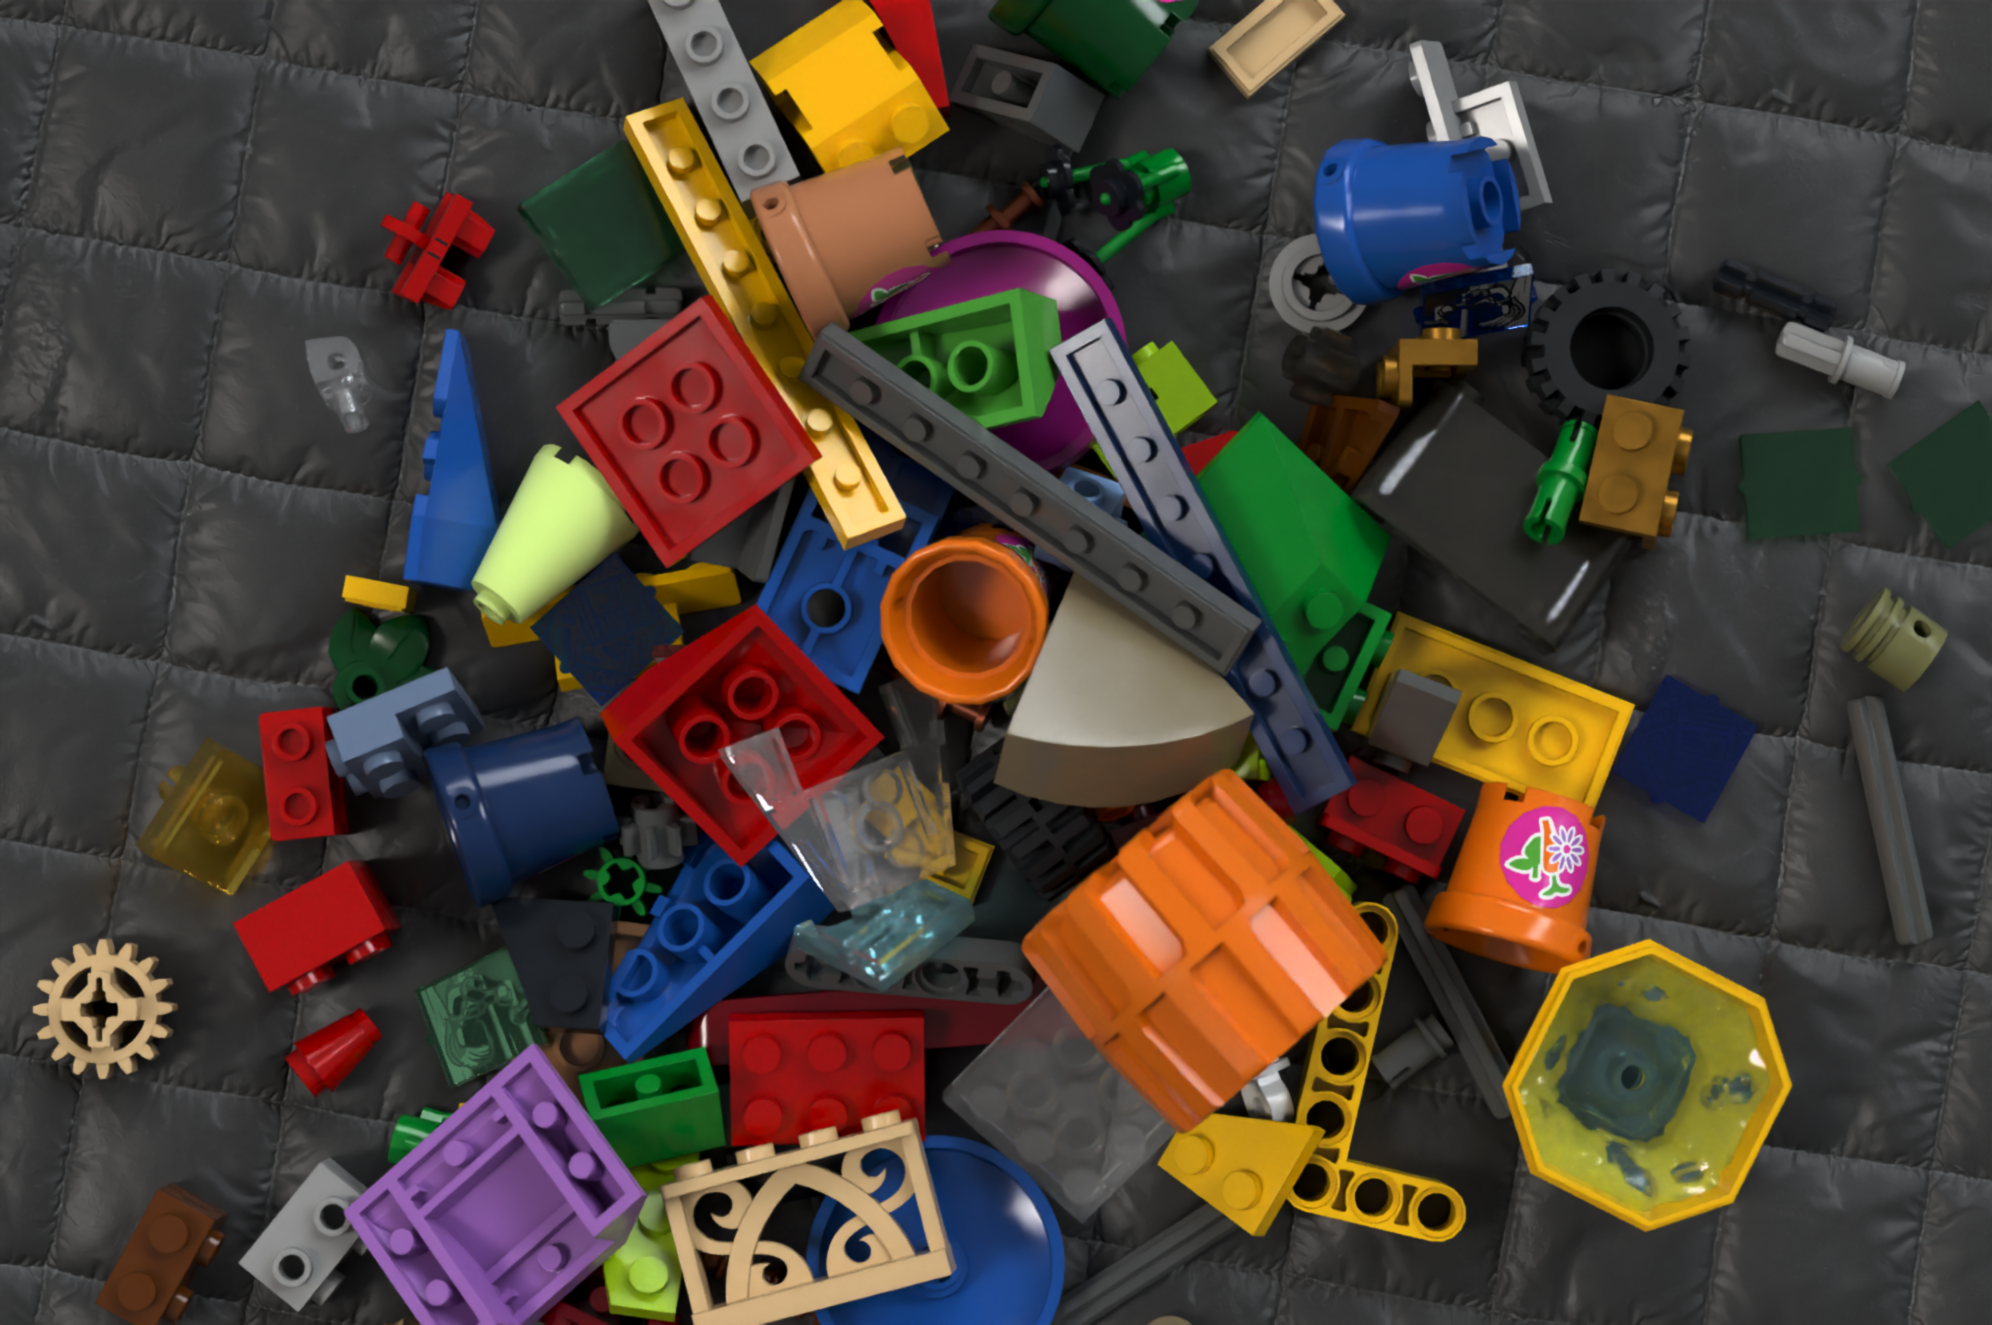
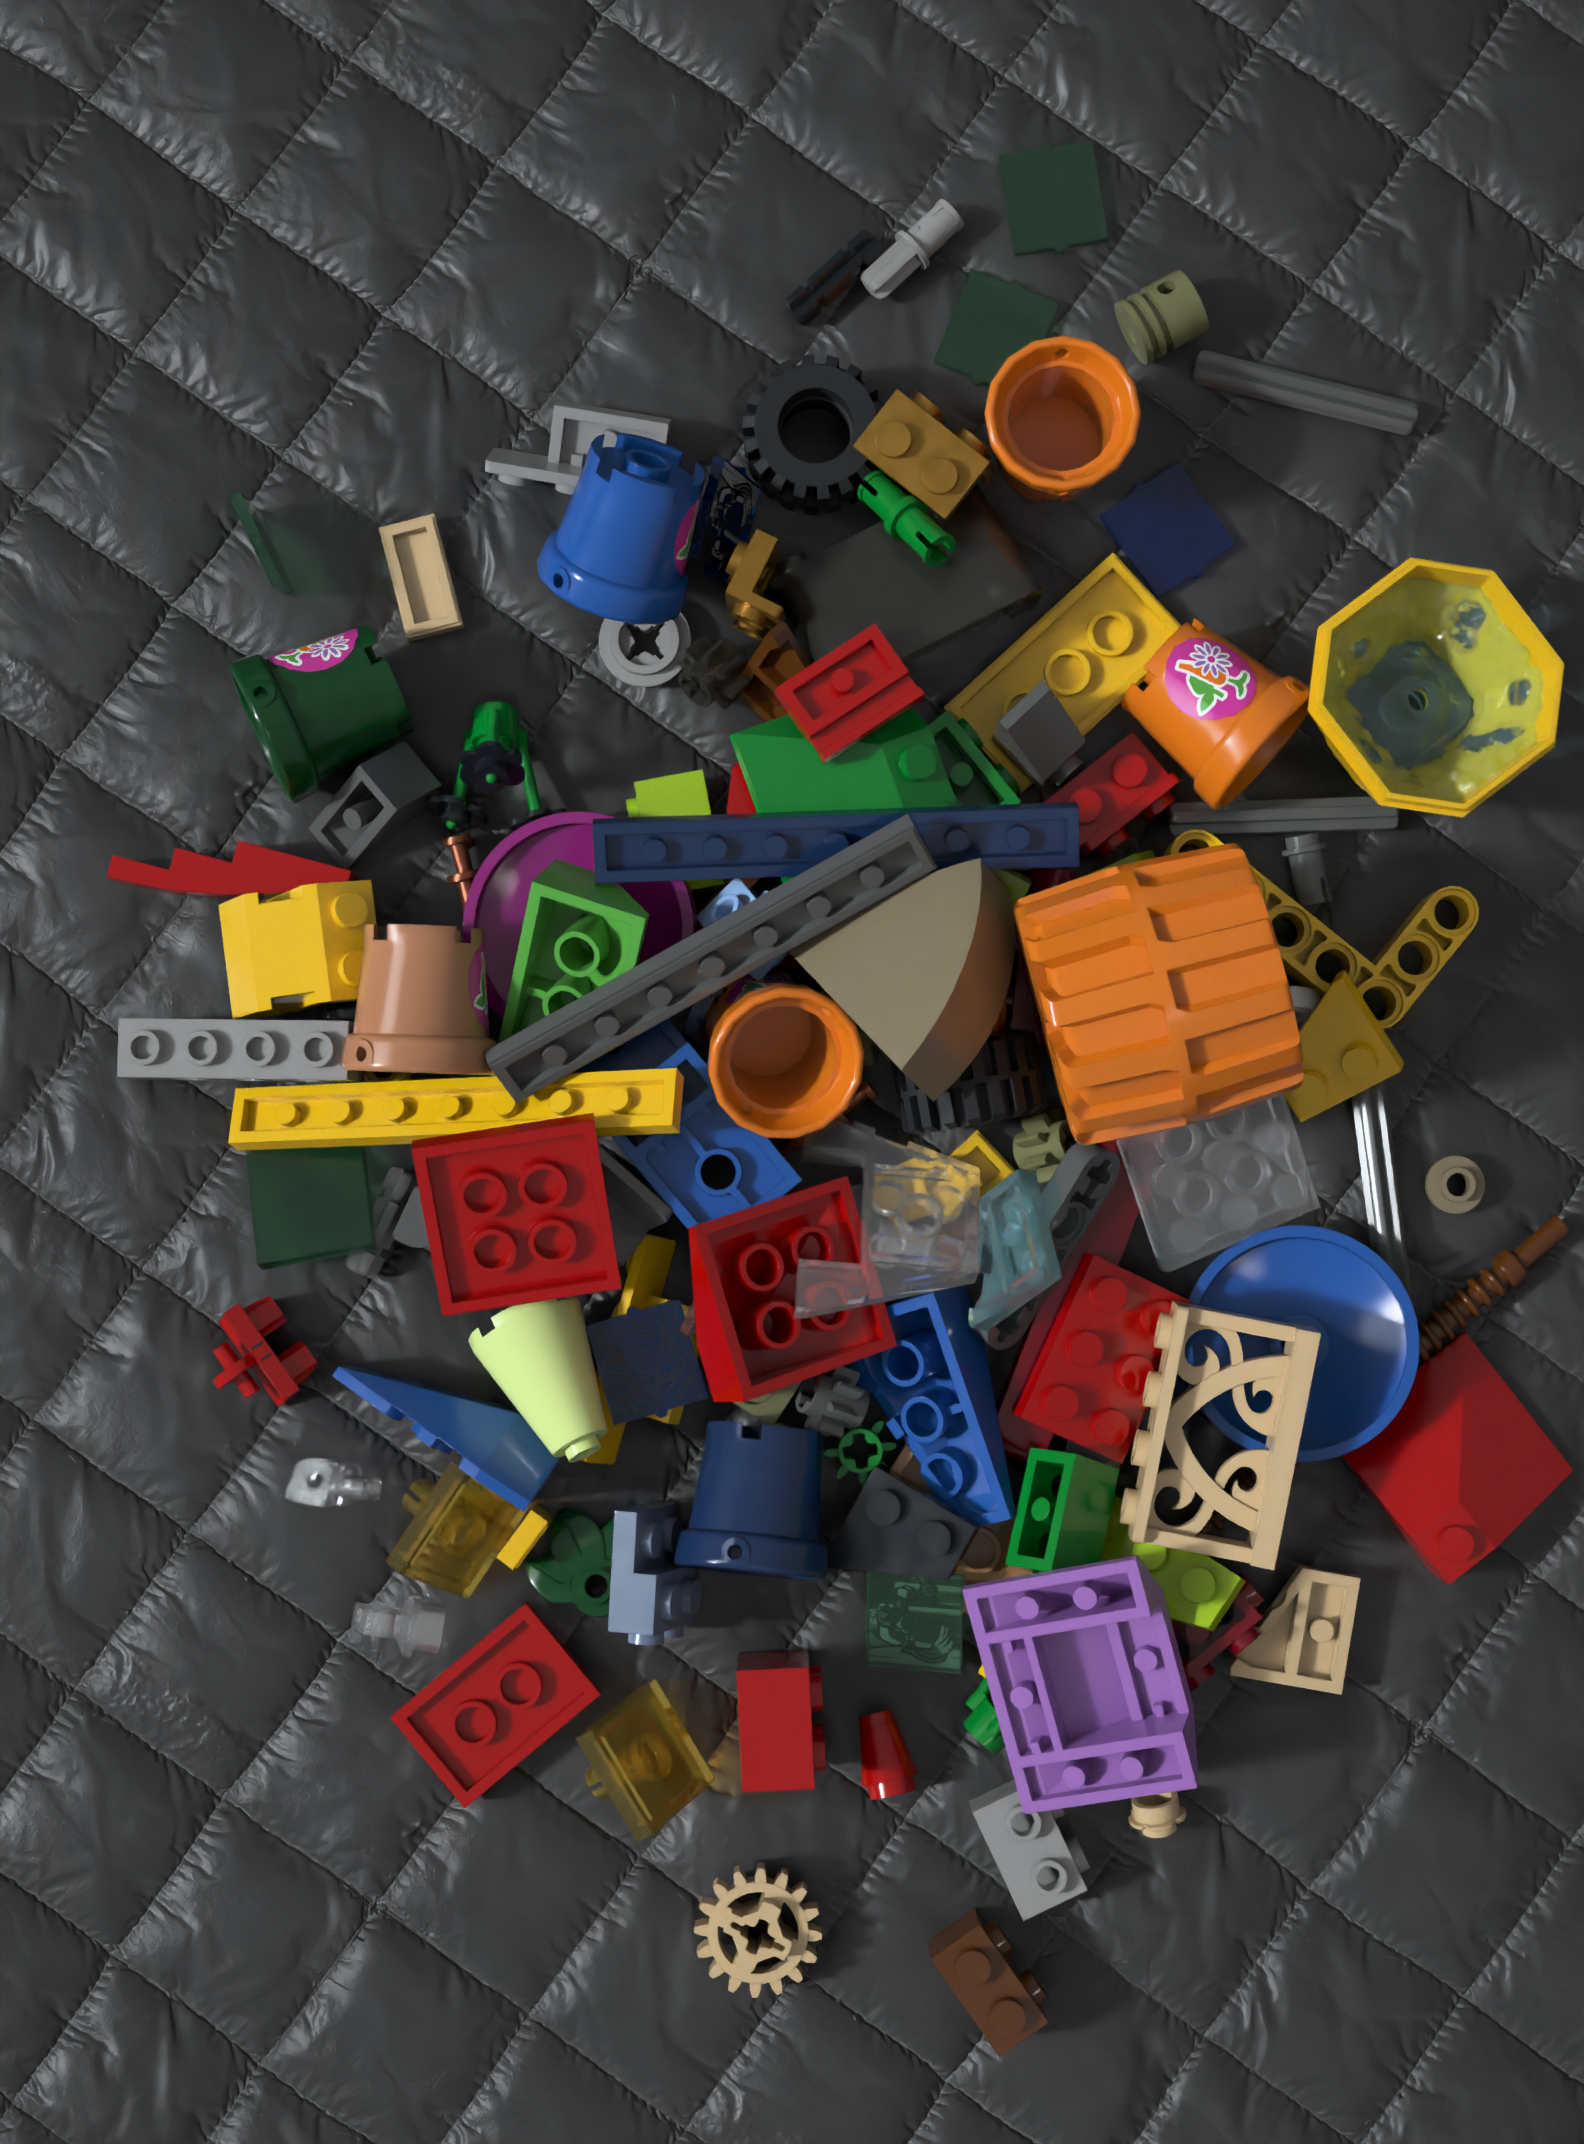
camera: 60 degrees left, 0 degrees up
(201, 644) = (496, 1704): none -> red plate
(240, 529) = (414, 1625): none -> clear piece
(300, 781) = (647, 1677): red bracket -> none
(350, 521) = (453, 1532): none -> clear yellow tile
(1008, 914) = (1042, 1143): none -> olive gear
(1356, 508) = (849, 693): none -> red plate
(1736, 585) = (1061, 417): none -> orange piece

